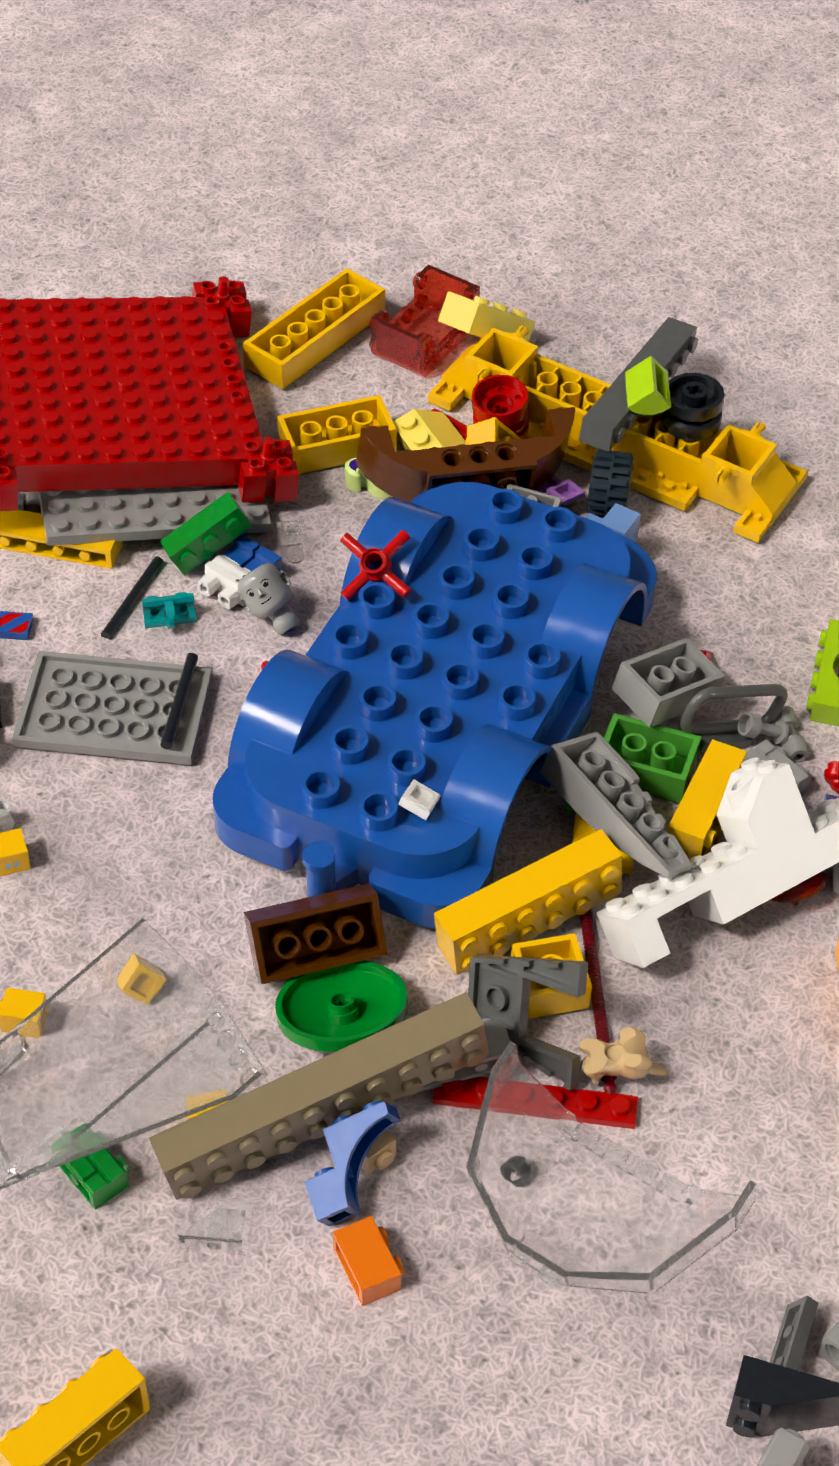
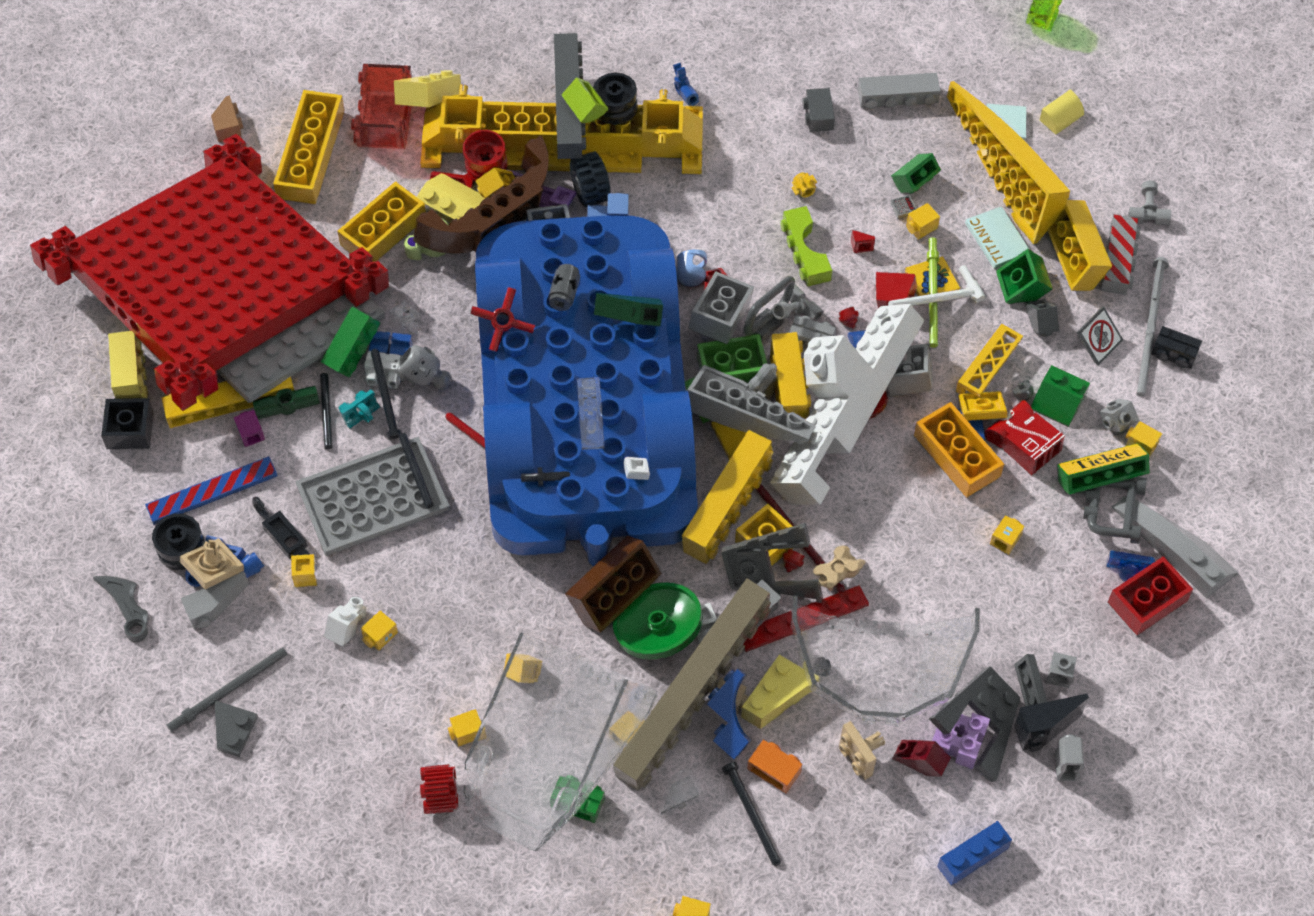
camera: 30 degrees left, 10 degrees up
(32, 575) = (249, 428): none -> magenta brick
(93, 566) = (275, 404): none -> dark green piece
(205, 606) = (393, 430): none -> black bar
(249, 267) = (225, 120): none -> medium nougat slope
(297, 755) = (540, 476): none -> black piece
(309, 1235) = (731, 770): none -> black bar
(403, 707) = (590, 413): none -> clear slope
(425, 1169) = (777, 691): none -> light yellow wedge
(472, 560) = (564, 287): none -> dark grey piece
(489, 1297) = (860, 749): none -> tan plate
(536, 618) = (629, 308): none -> dark green slope
(568, 1022) = (792, 560): none -> red plate
(574, 1355) = (922, 756): none -> dark red slope
(662, 632) = (687, 272): none -> light blue helmet
(662, 1357) = (965, 747): none -> lavender brick
(669, 792) = (764, 380): none -> light grey rock
(717, 1331) = (989, 698): none -> dark grey wing
(799, 439) = (683, 86): none -> blue bar

